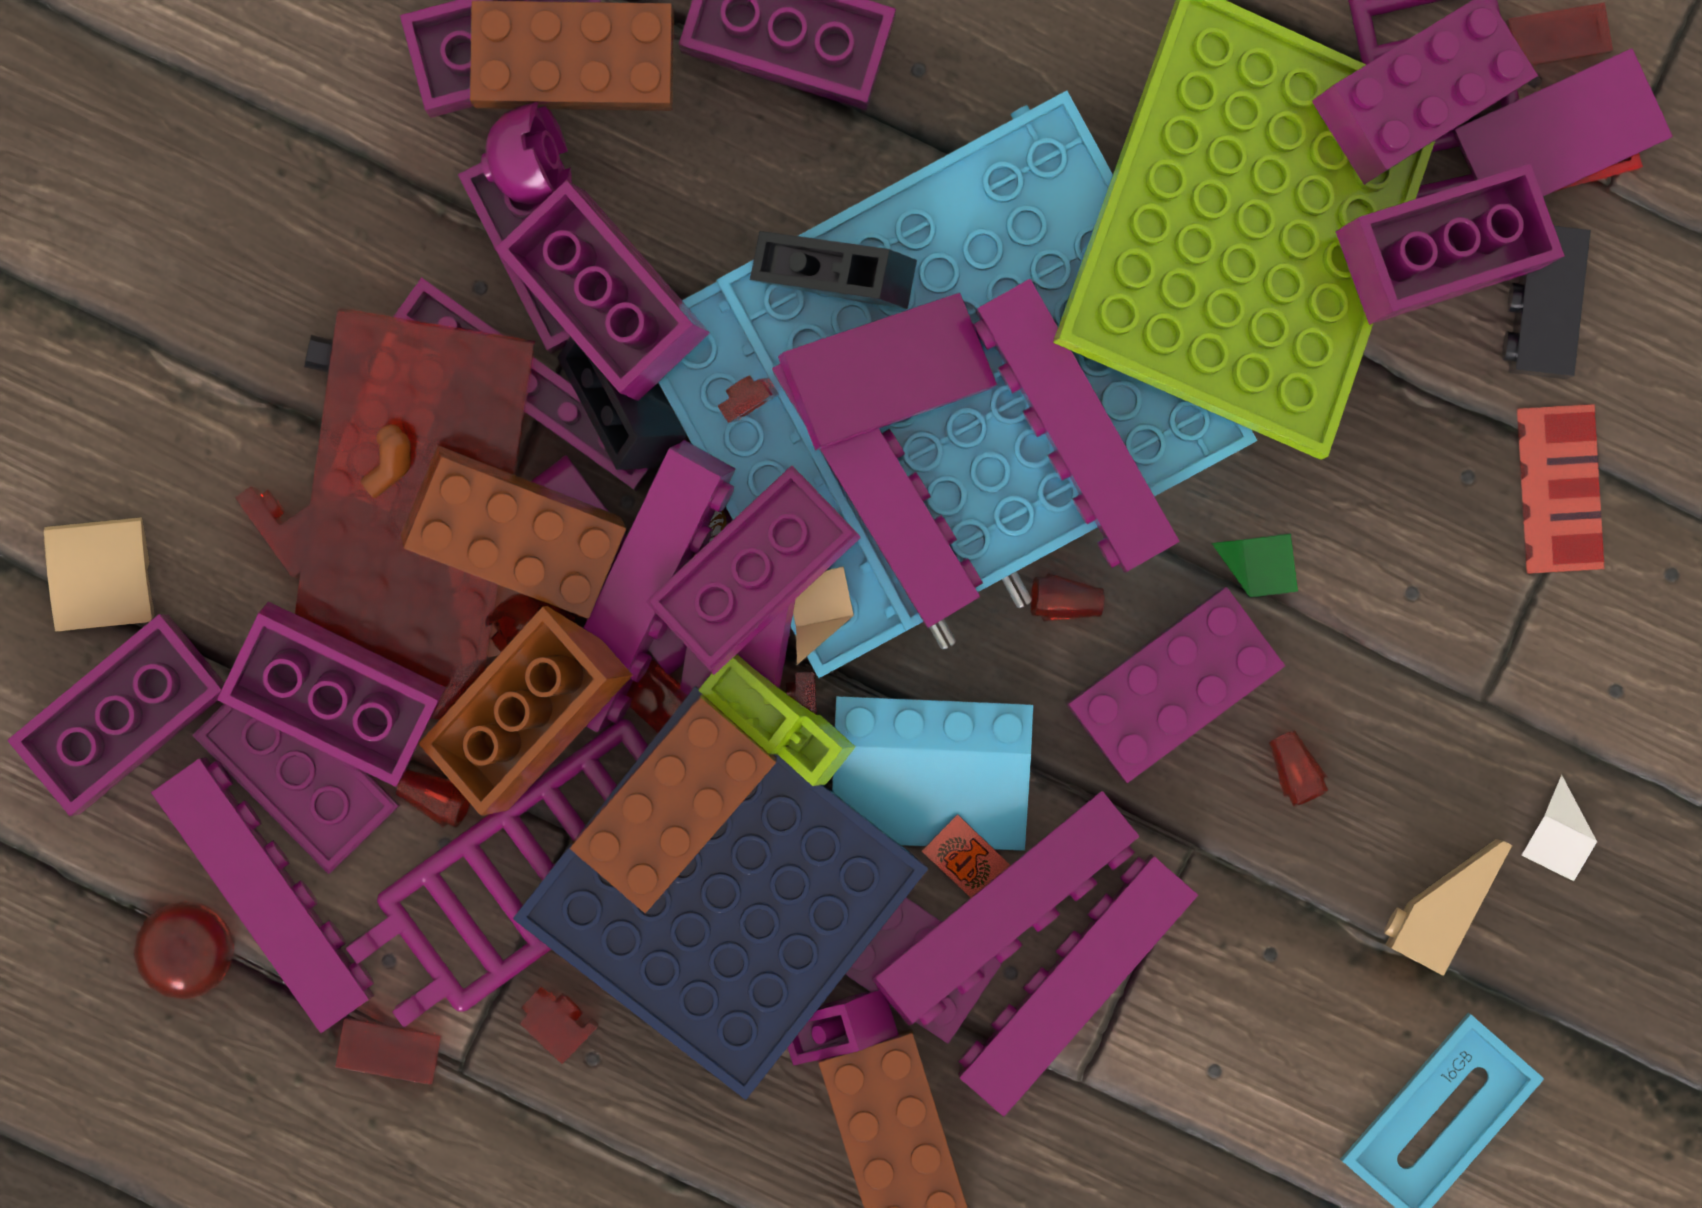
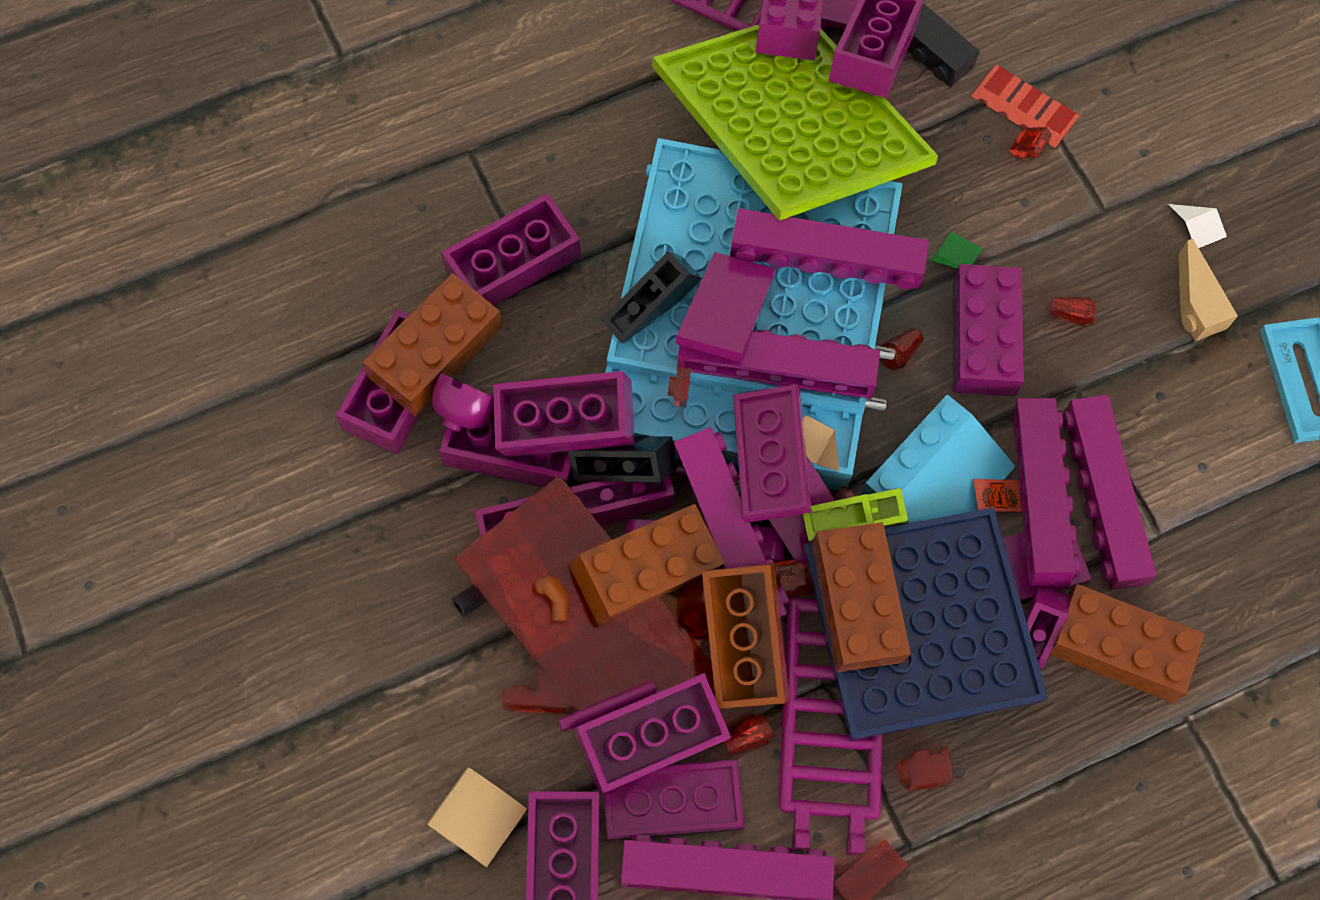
camera: 50 degrees left, 20 degrees down
(326, 618) = (607, 706): none -> magenta bar
(1498, 540) = (1031, 142): none -> clear red plate

